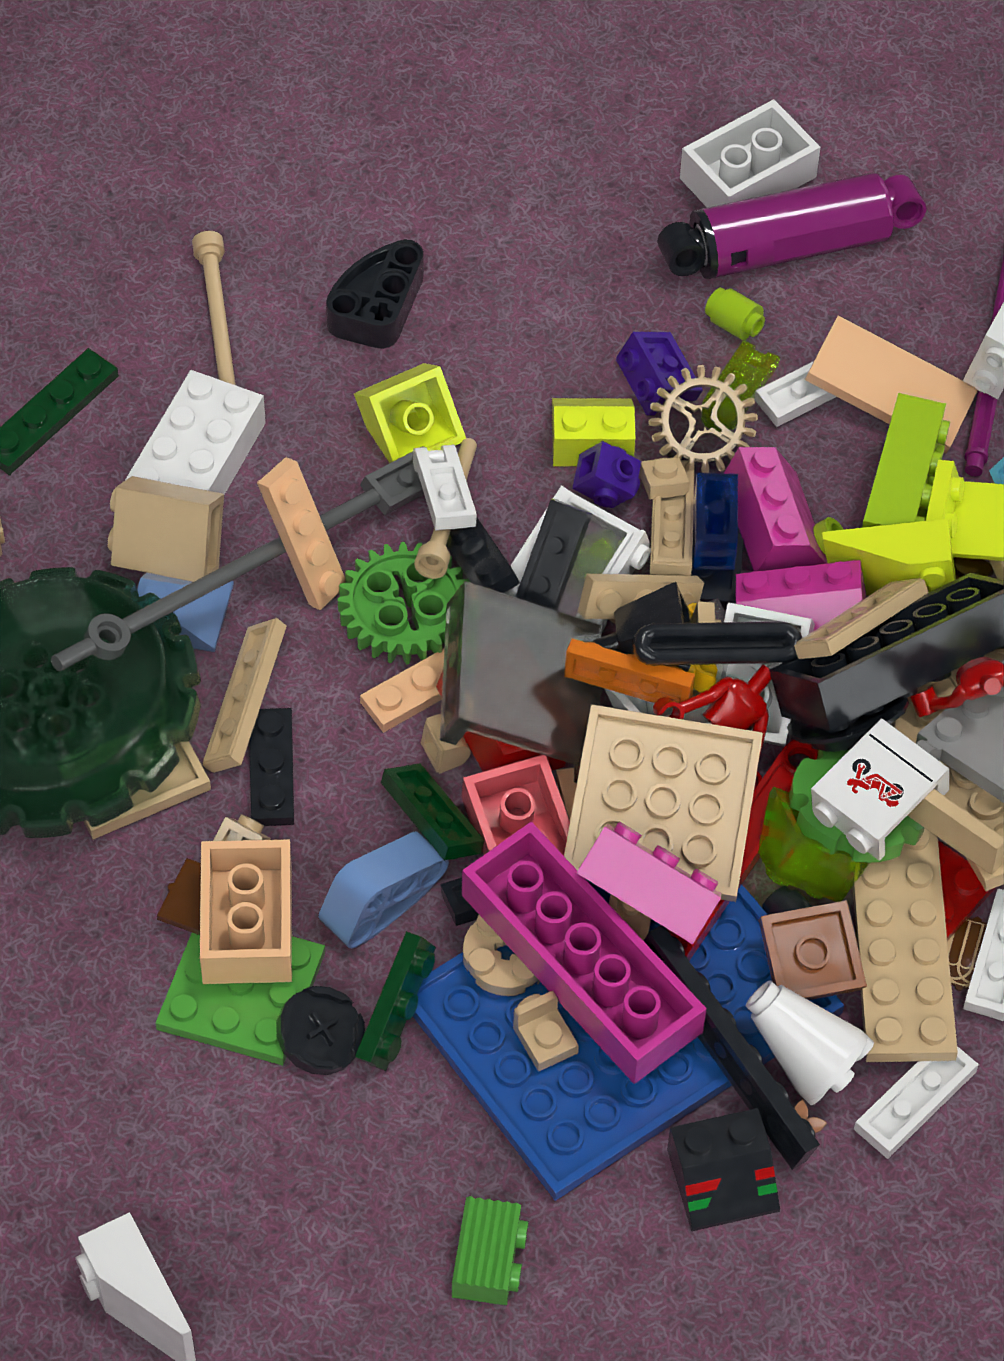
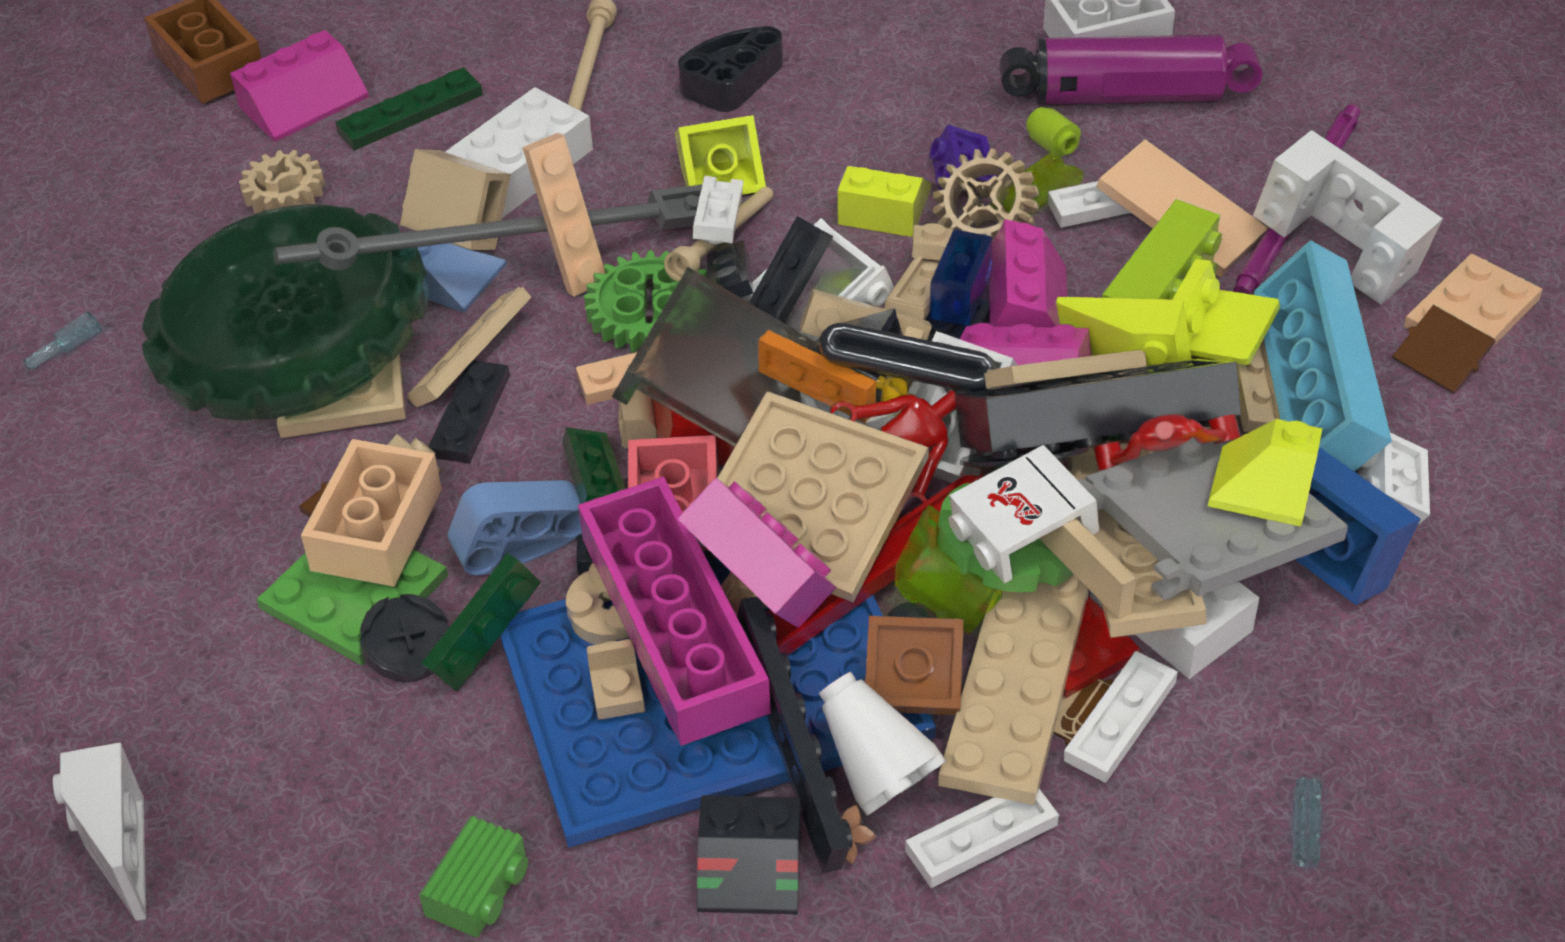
camera: 20 degrees right, 10 degrees down
(607, 475) = (880, 231): dark purple brick -> none

